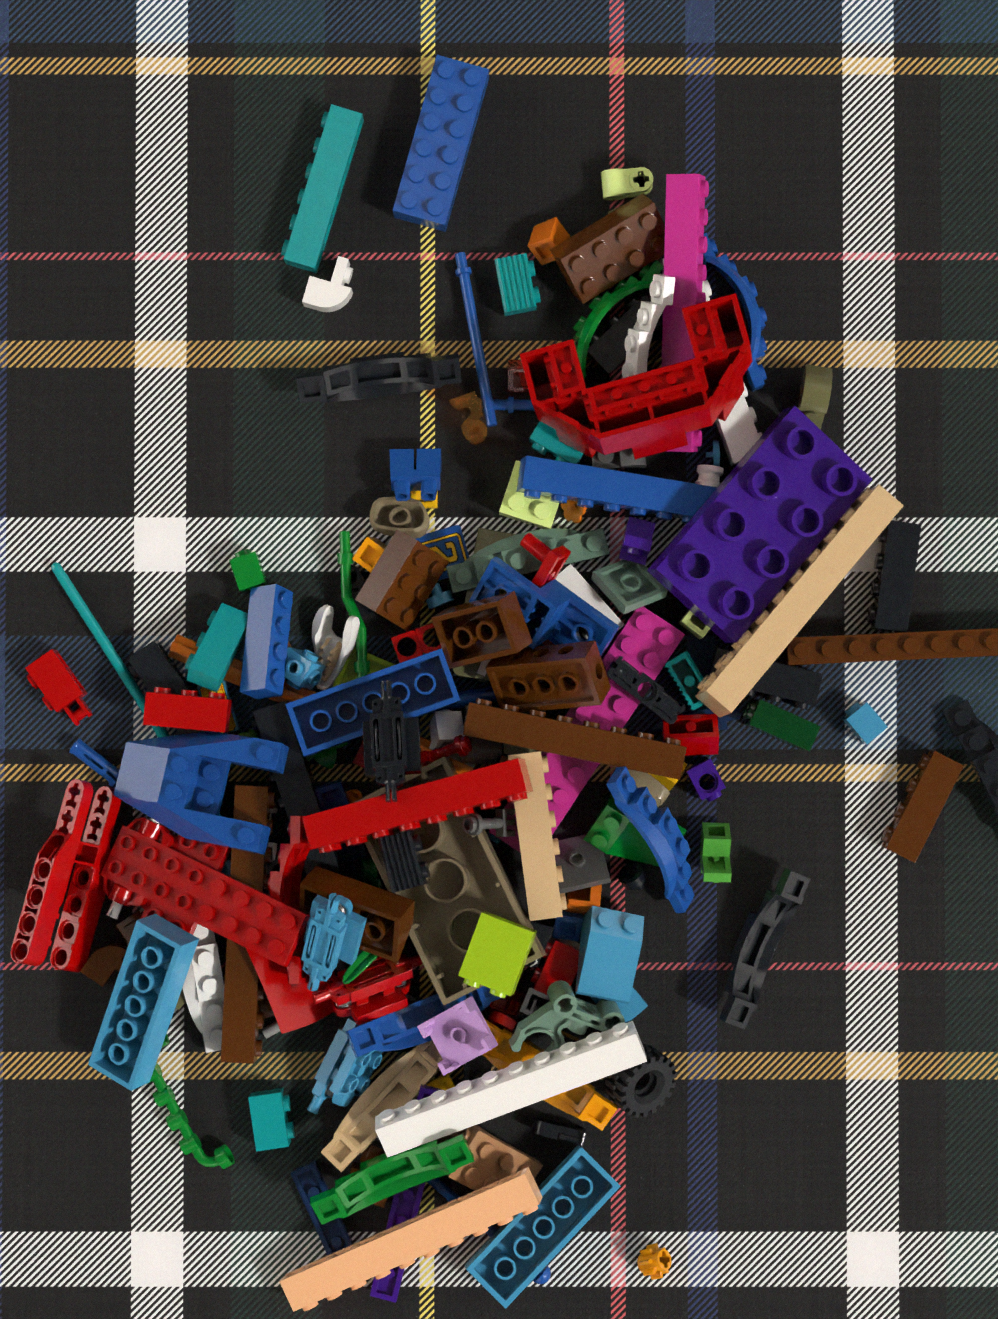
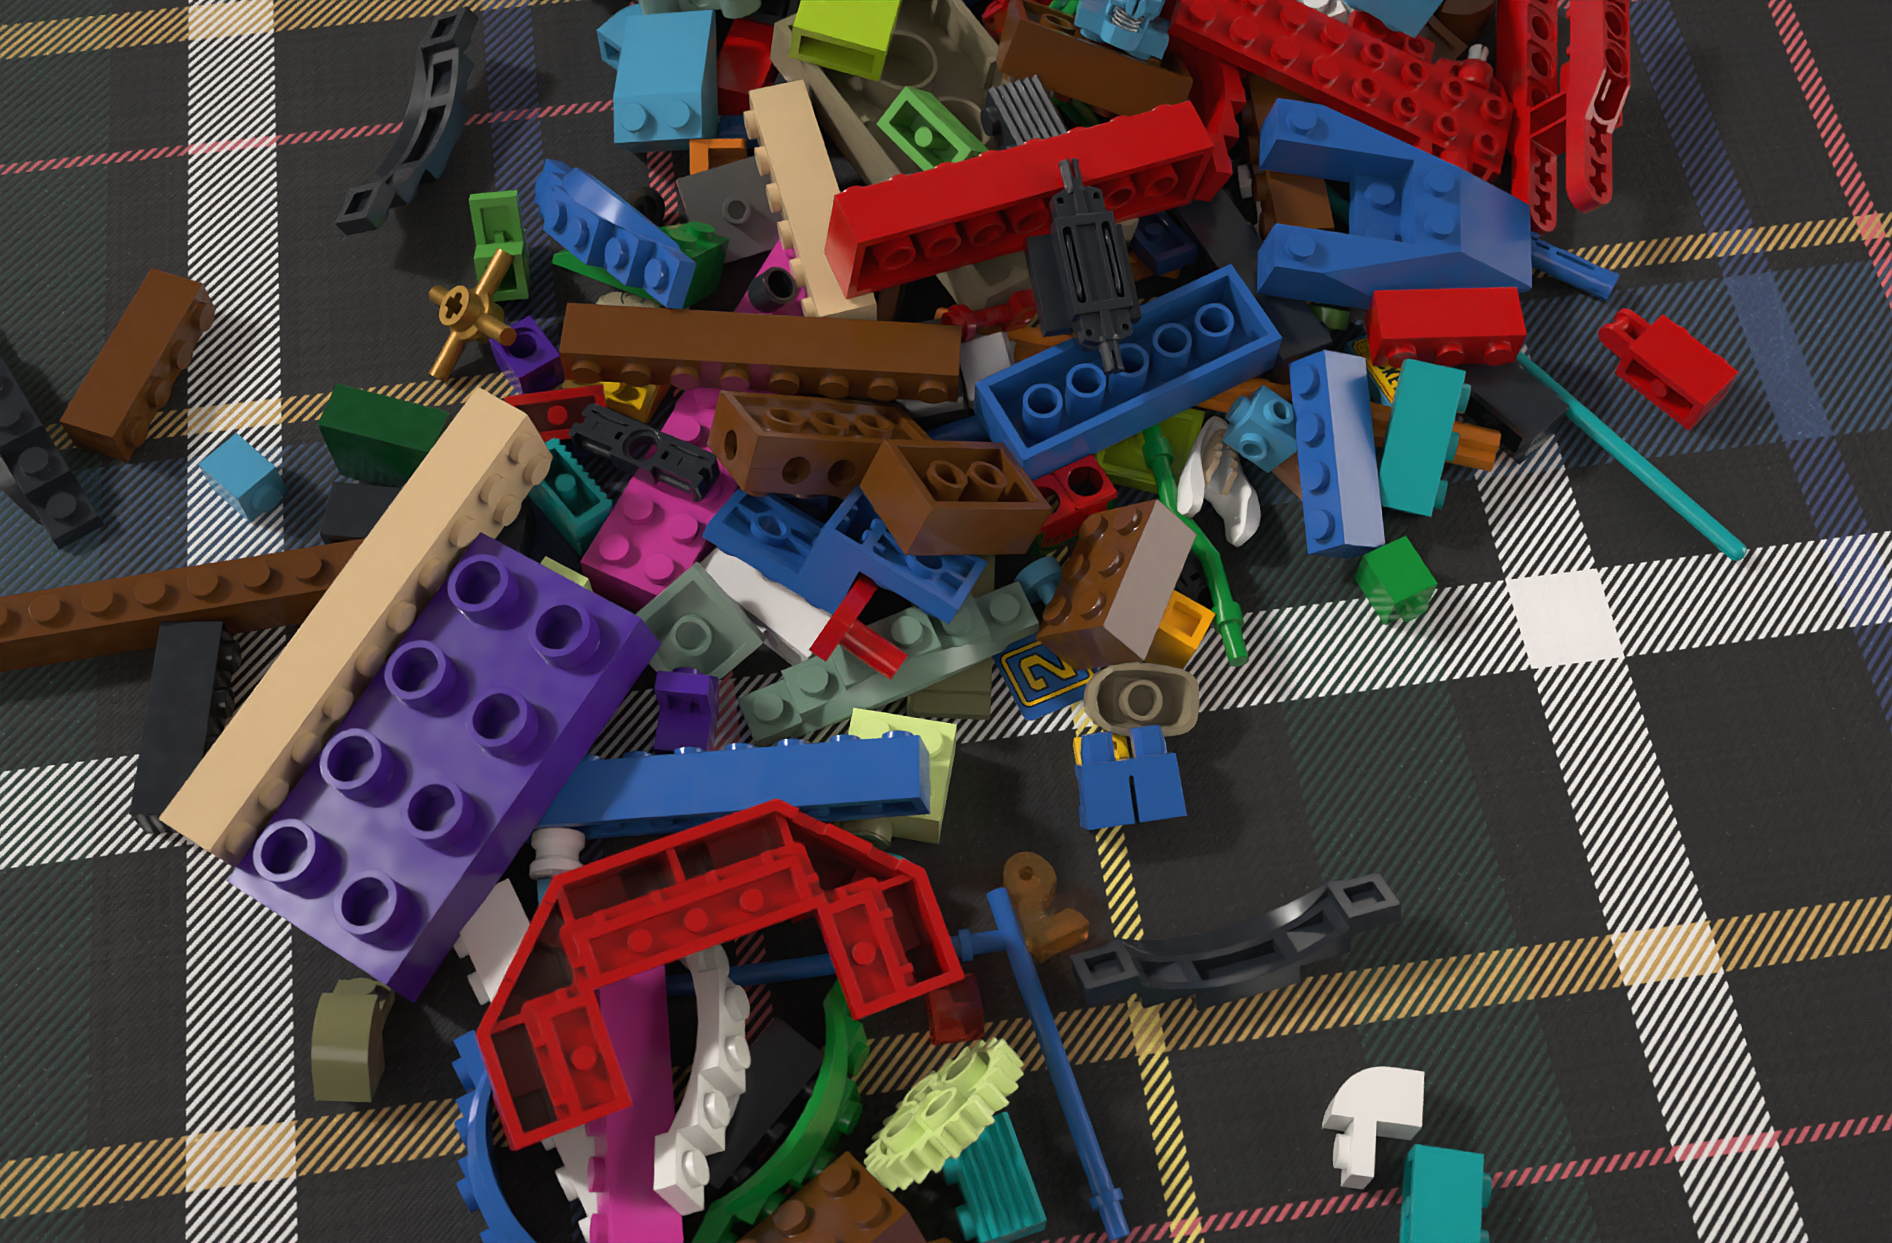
camera: 170 degrees right, 25 degrees down
(460, 851) = (928, 130): none -> bright green brick
(536, 308) = (943, 1114): none -> yellowish green gear
(564, 782) = (771, 290): none -> black piece
(734, 808) = (472, 315): none -> pearl gold bar

